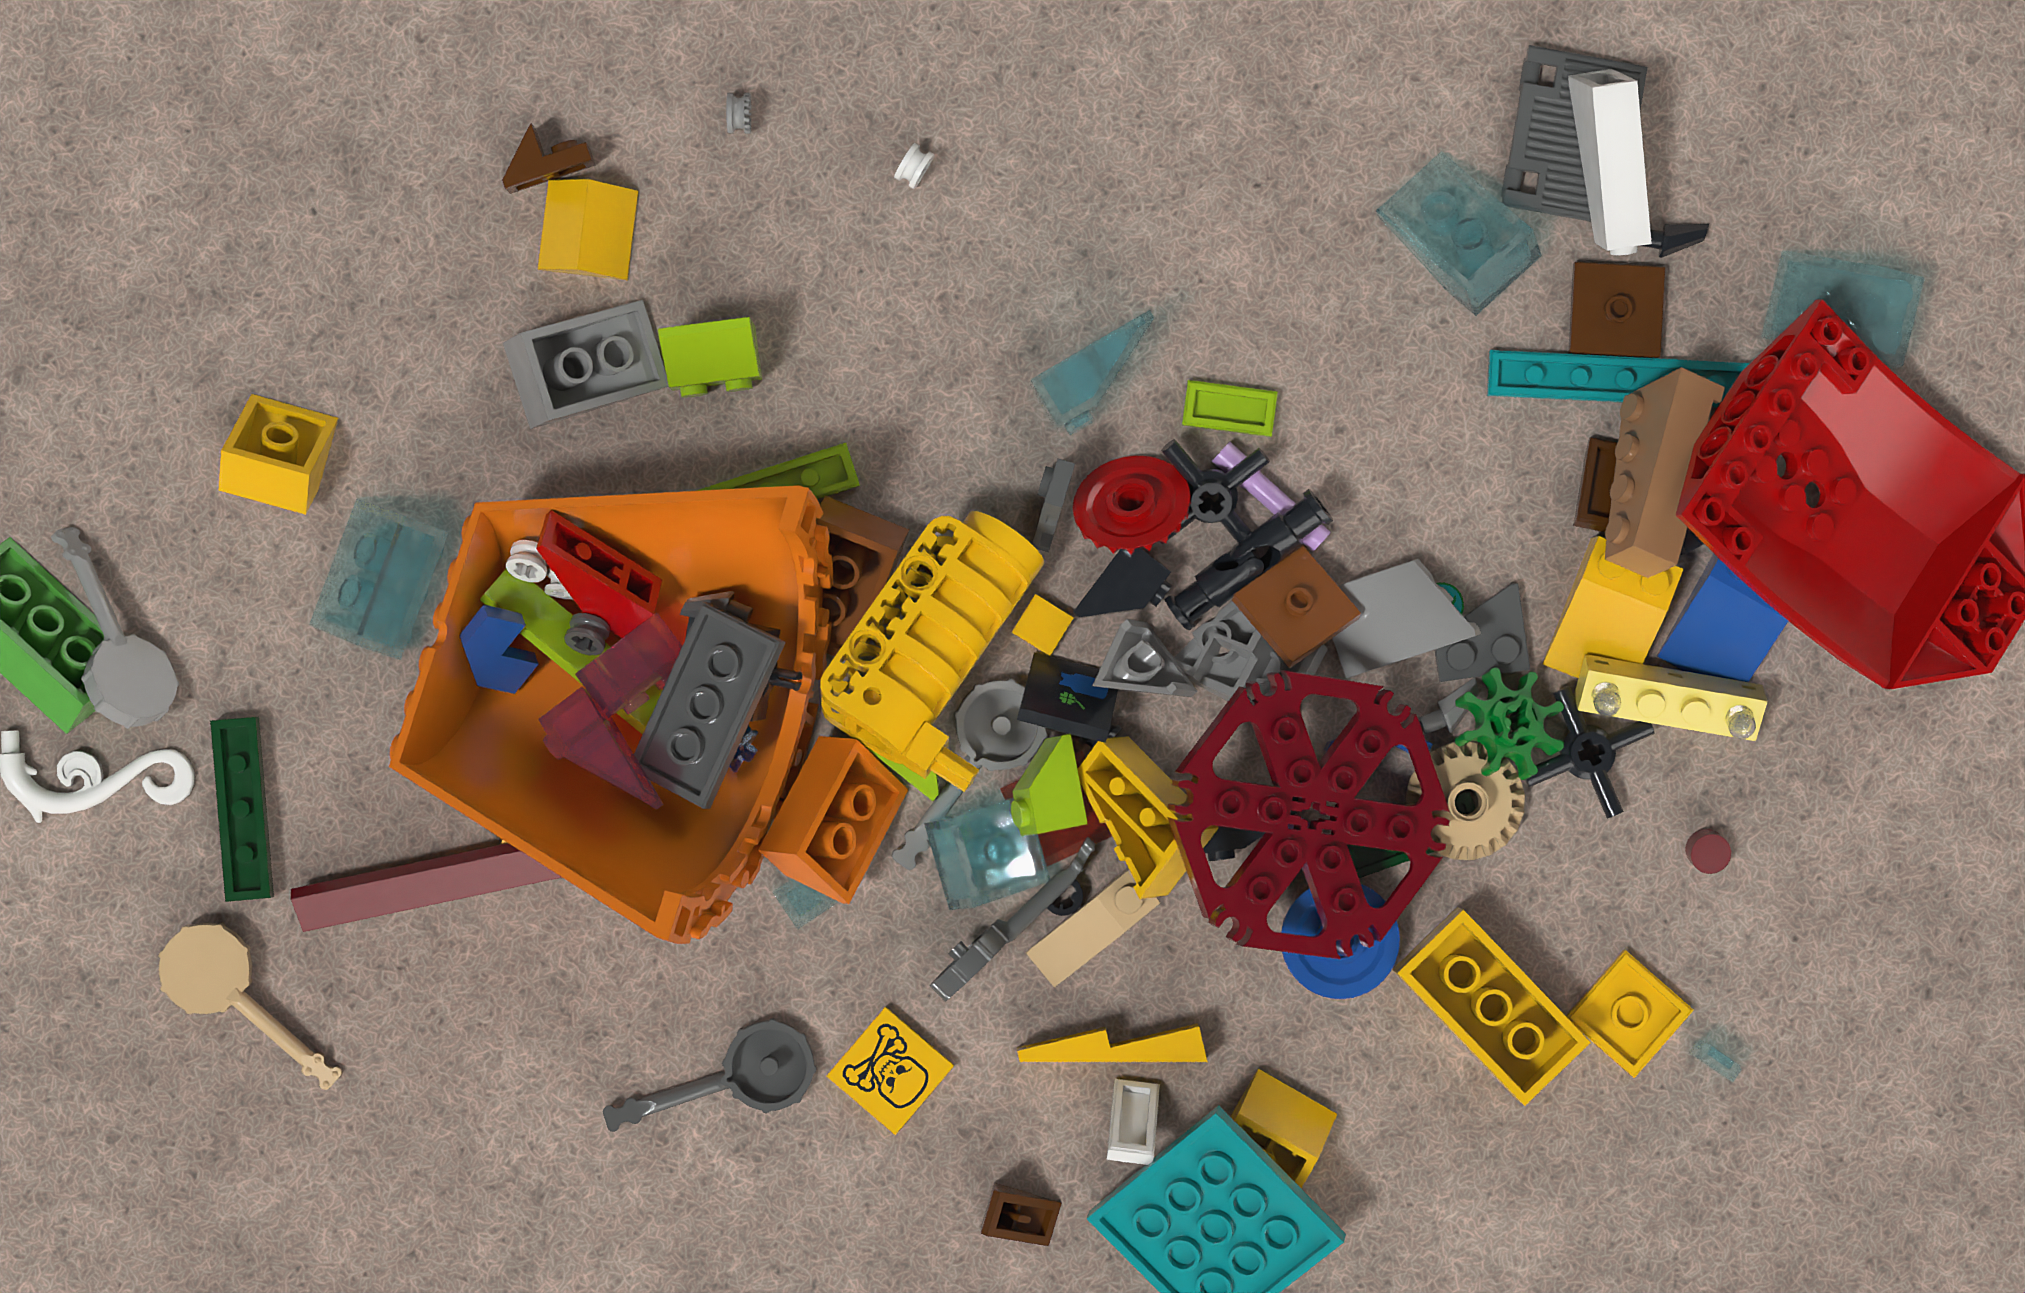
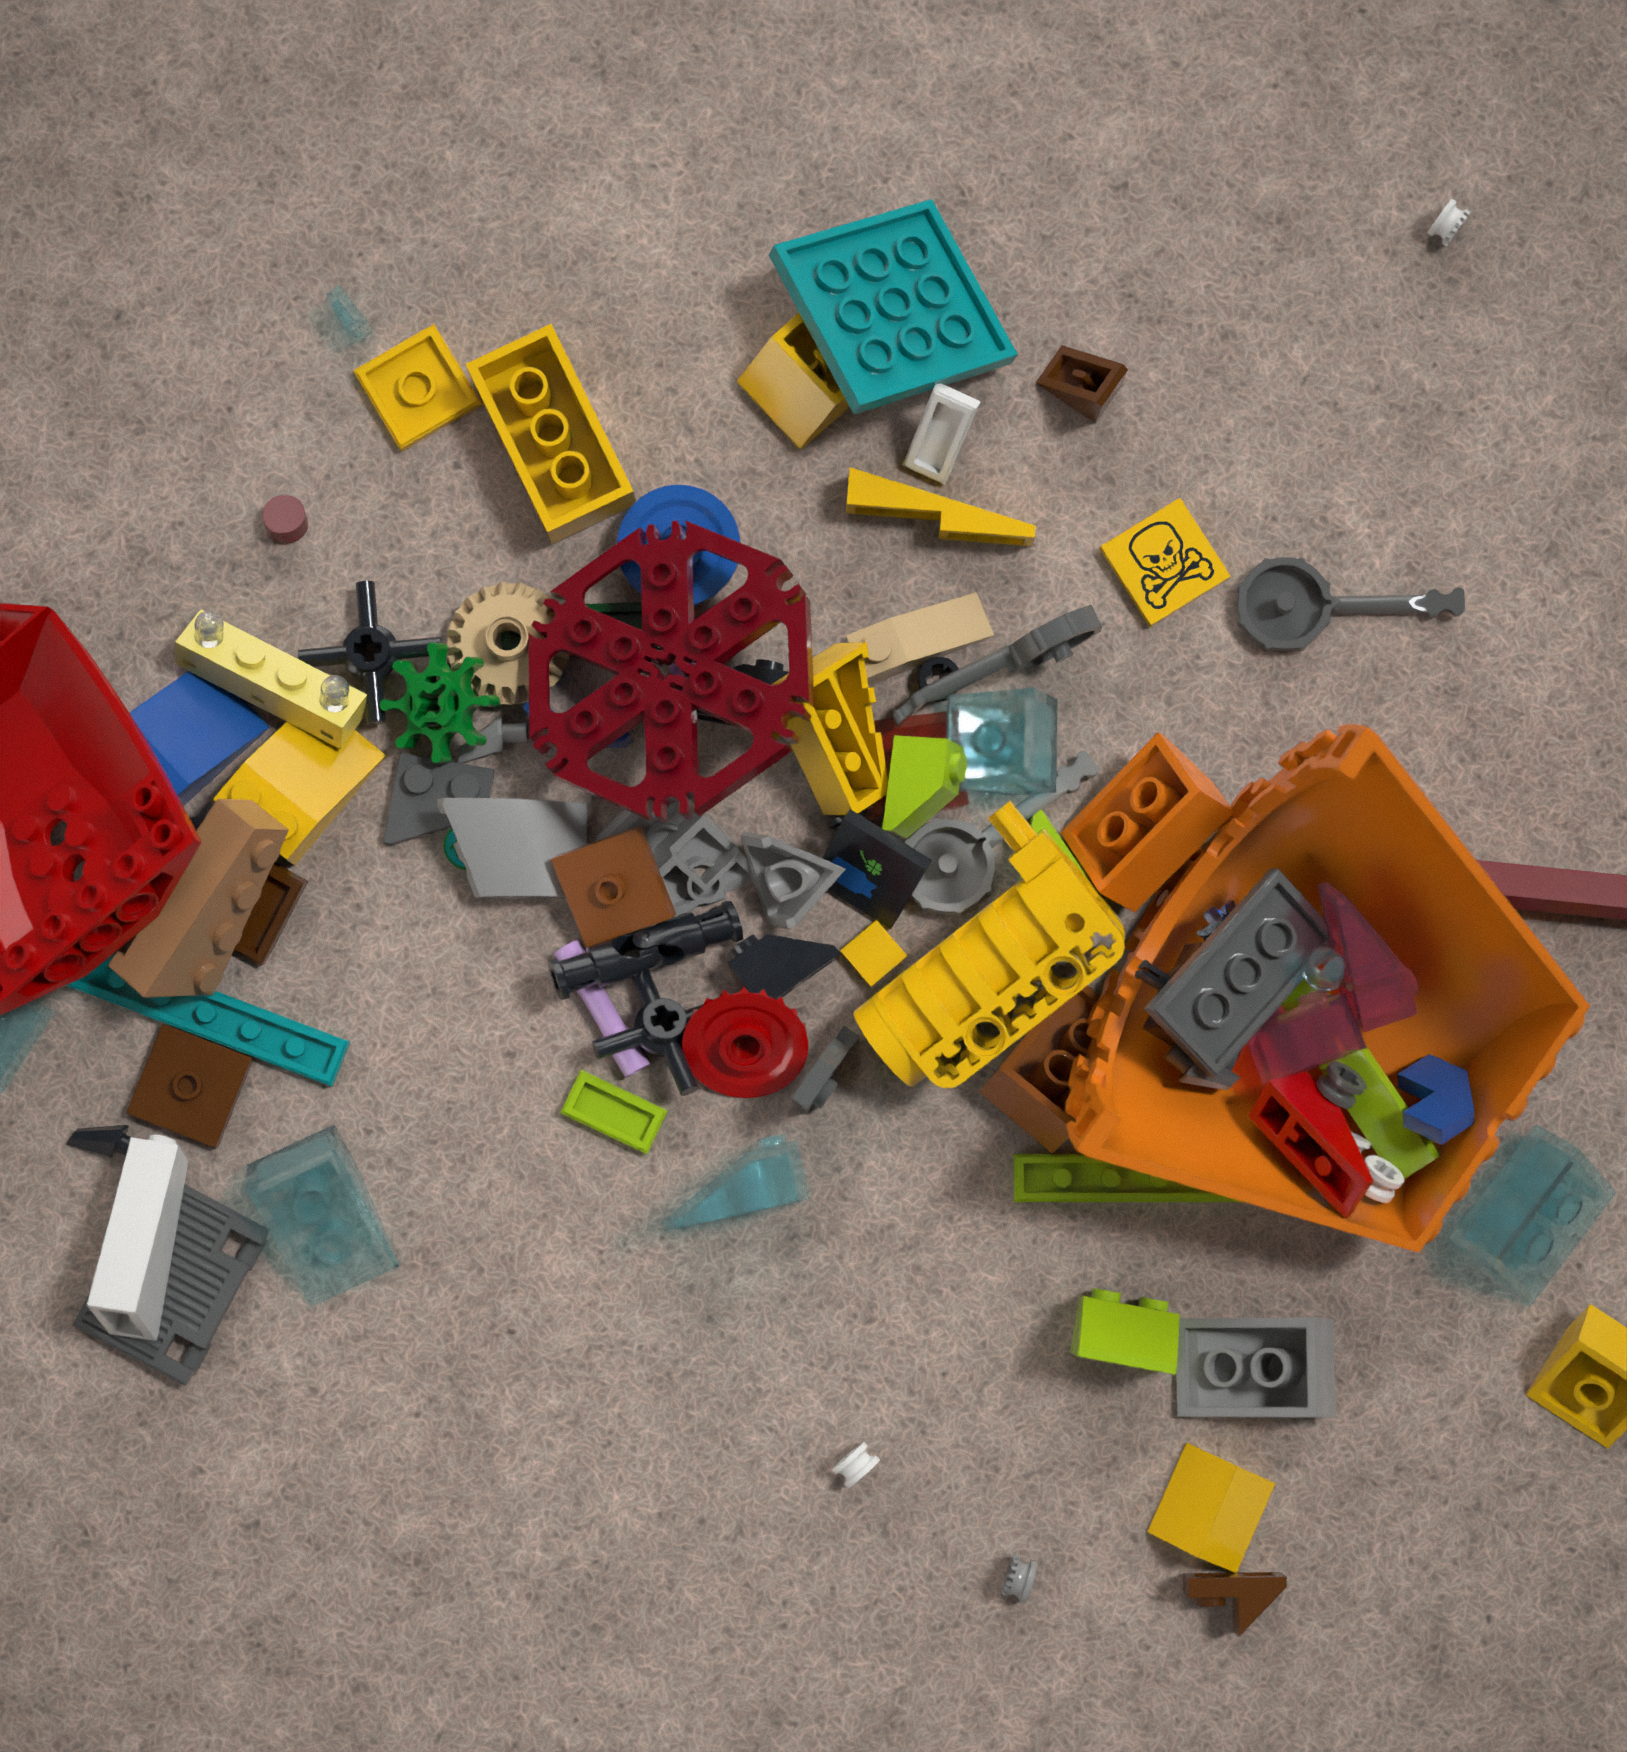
camera: 165 degrees left, 5 degrees down
(626, 728) = (1331, 975): none -> clear light blue hinge
(802, 902) = (1204, 752): clear light blue tile -> none

